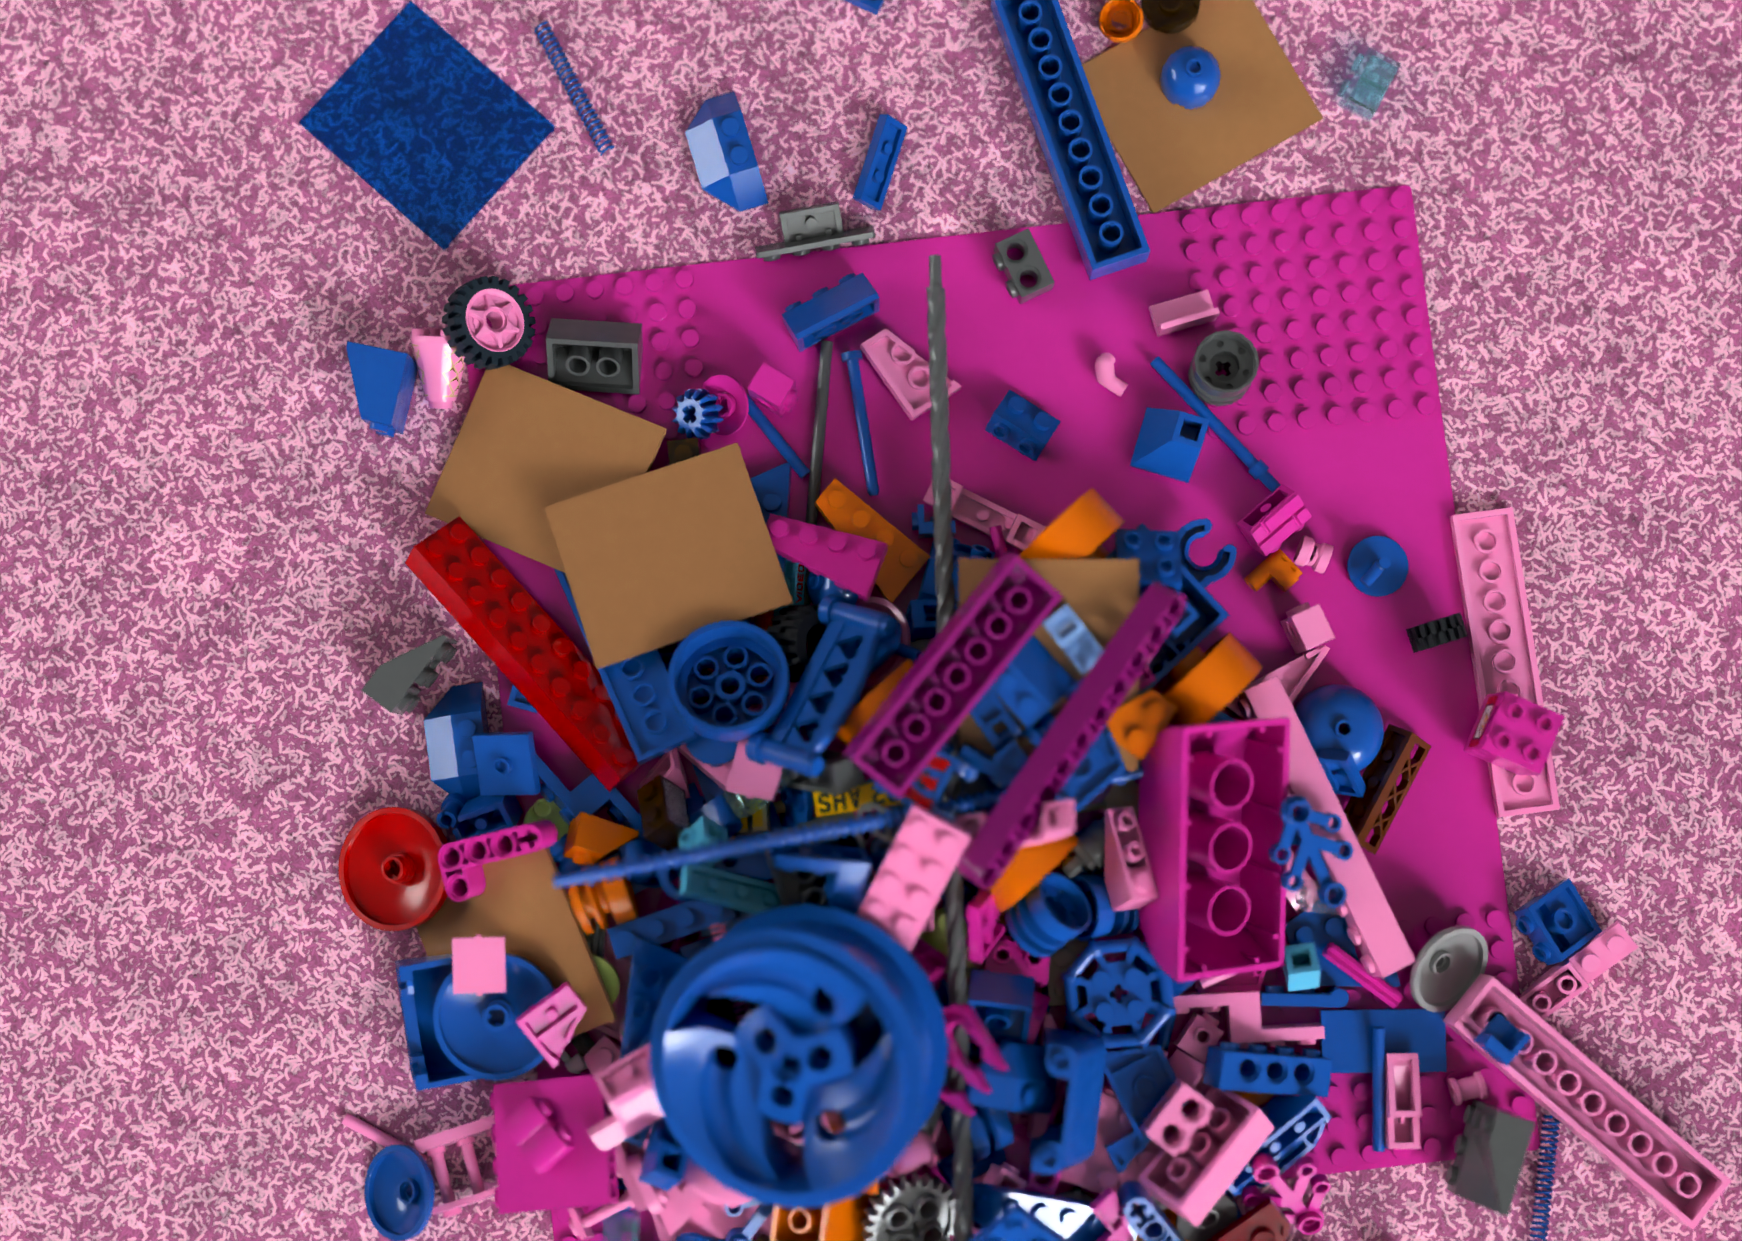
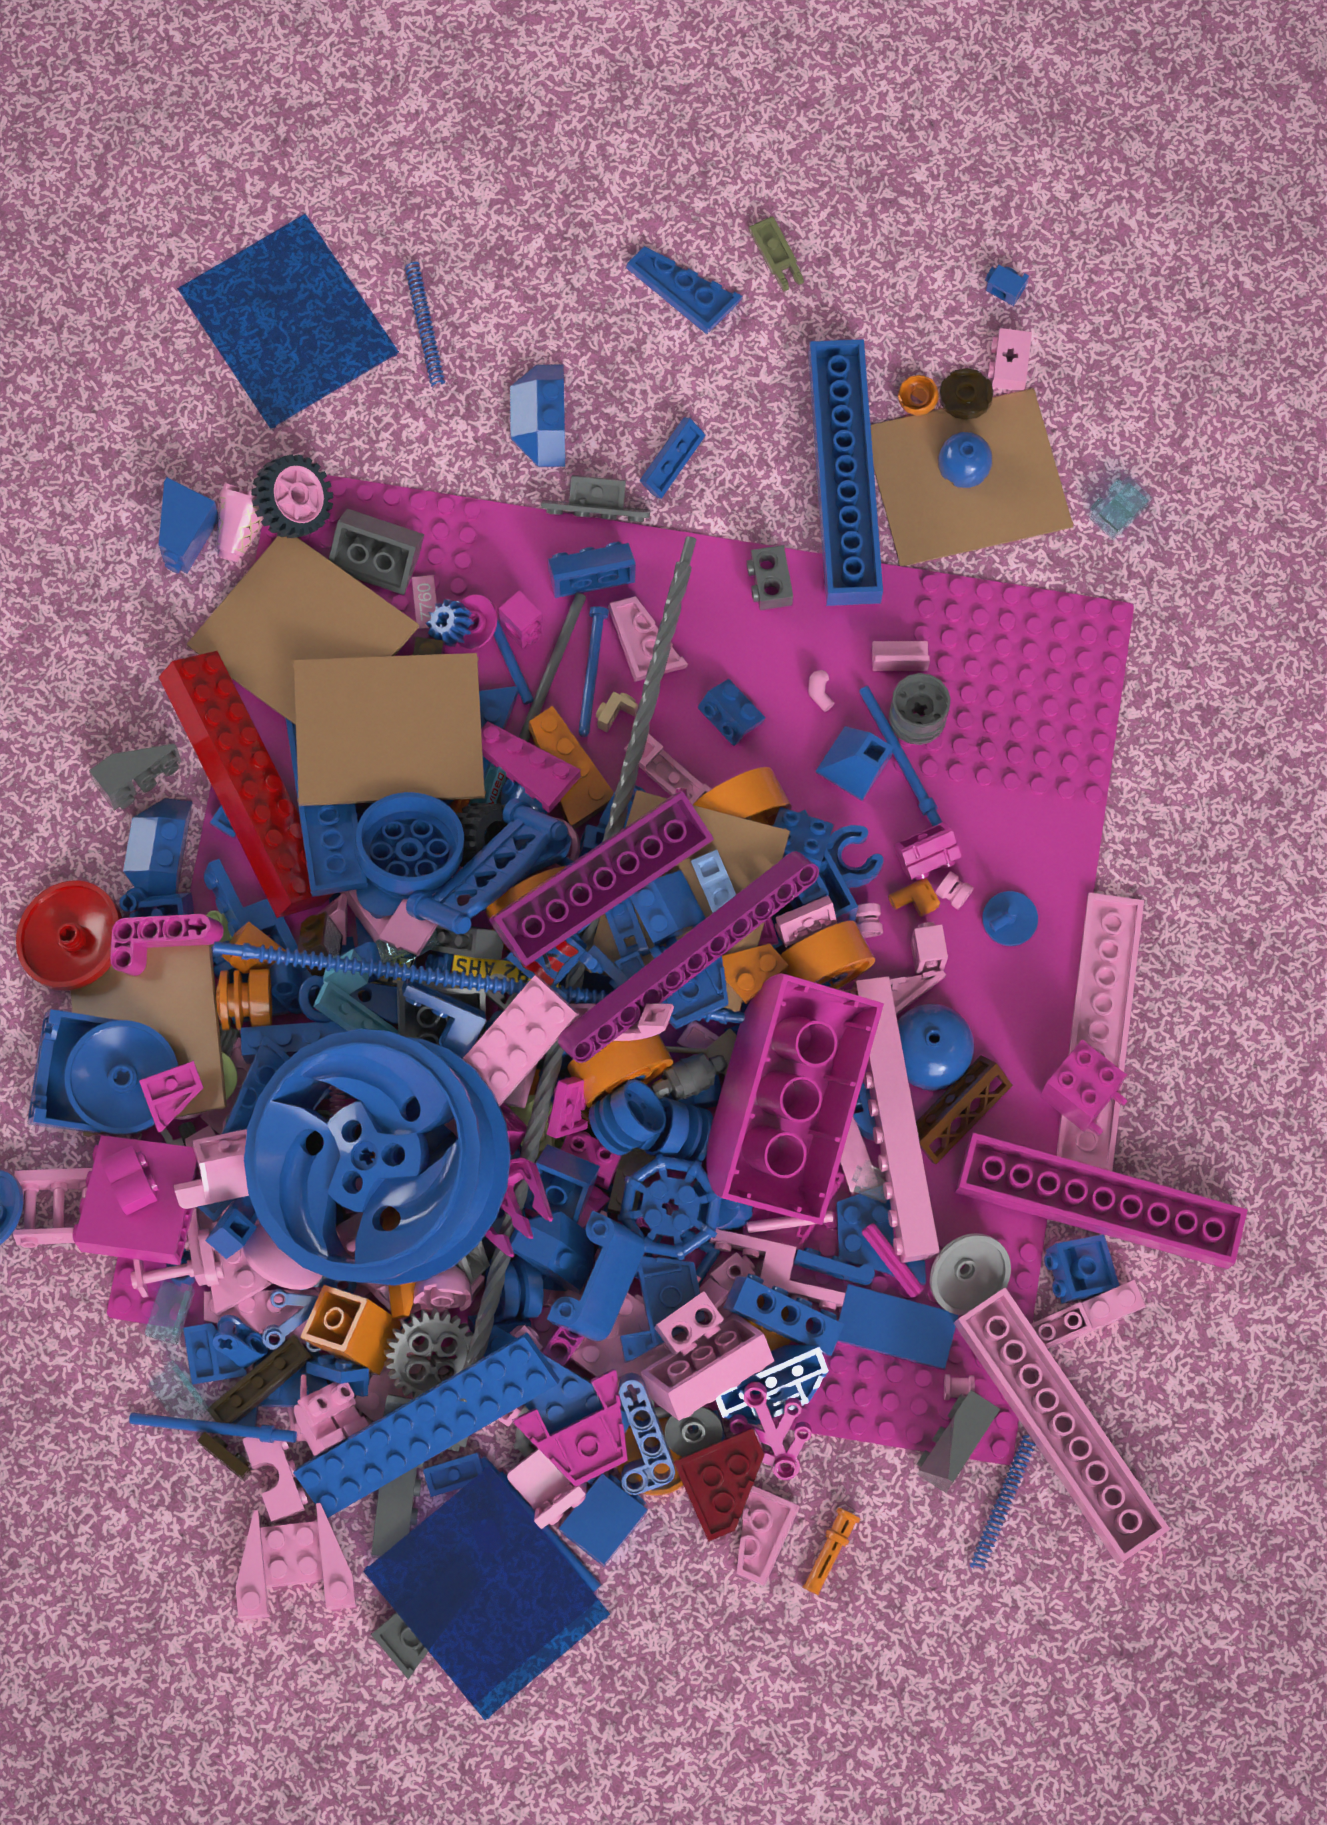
camera: 10 degrees right, 10 degrees down
(479, 965) = (121, 1026): bright pink piece -> none
(506, 763) = (195, 867): blue plate -> none
(662, 392) = (424, 598): none -> bright pink sticker
(893, 462) = (607, 712): none -> tan bracket
(925, 529) = (615, 770): blue bracket -> none
(1126, 862) = (708, 1094): bright pink slope -> none
(1182, 652) = (805, 921): none -> bright pink bracket
(1235, 618) = (868, 920): none -> bright pink wheel
(1301, 967) = (838, 1233): medium azure brick -> none
(1309, 848) = (871, 1122): blue plant -> none
(1346, 780) = (926, 1087): blue plate -> none
(1378, 1088) = (879, 1365): blue bar -> none
(1402, 1101) = (896, 1381): bright pink slope -> none
(1437, 632) = (1043, 984): black tyre -> none
(1502, 1040) = (994, 1340): blue panel -> none
(1561, 848) = (1101, 1201): none -> dark pink brick

